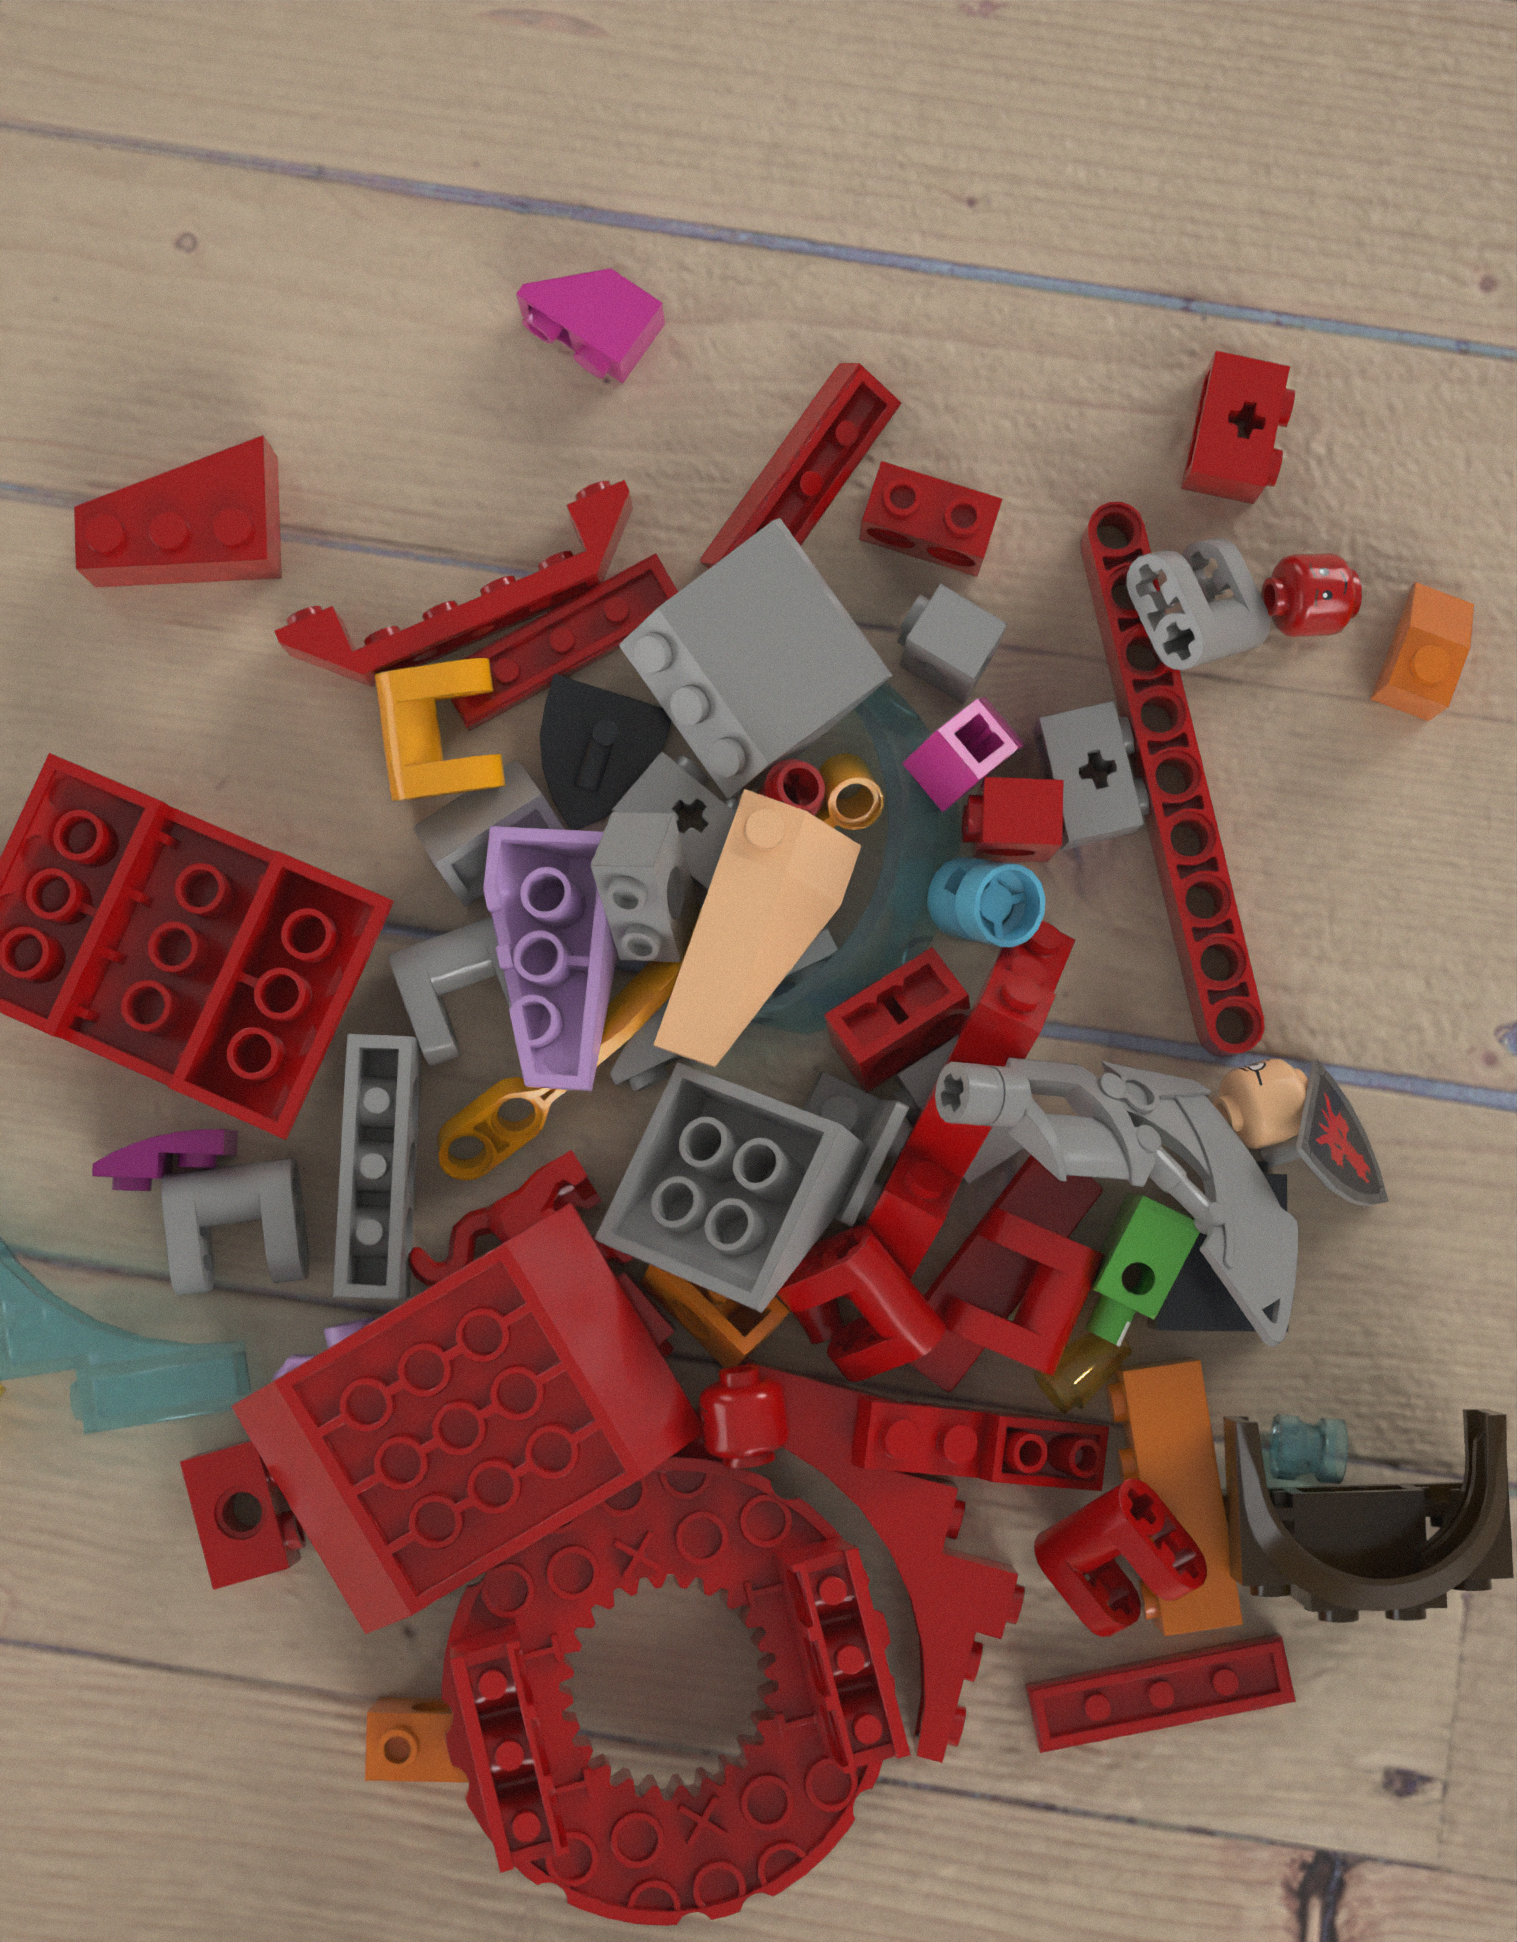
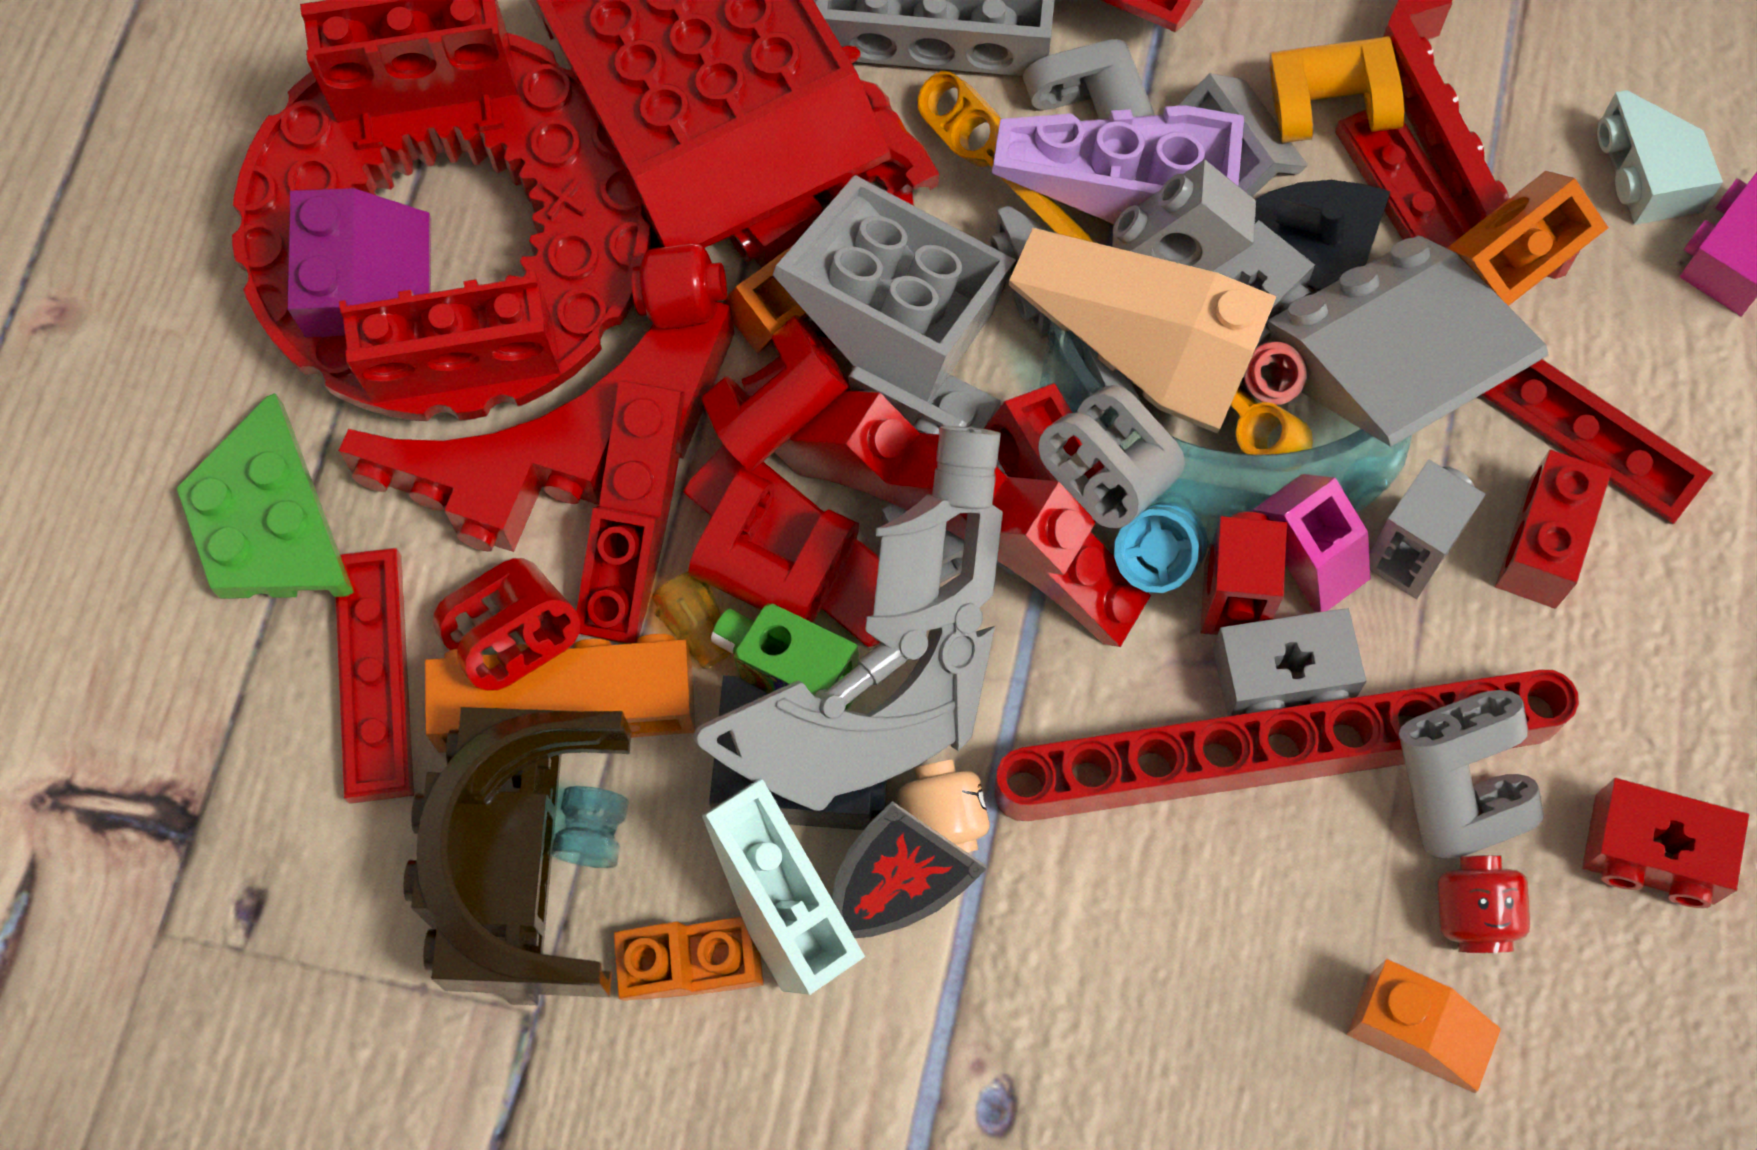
camera: 95 degrees right, 15 degrees down
(499, 400) = (1658, 160): none -> light aqua slope
(640, 536) = (1530, 235): none -> orange brick
(752, 1767) = (353, 251): none -> magenta slope
(955, 944) = (1129, 476): none -> light grey connector
(1000, 1838) = (260, 514): none -> bright green wing
(1383, 1250) = (779, 892): none -> light aqua slope
(1420, 1340) = (686, 959): none -> orange slope

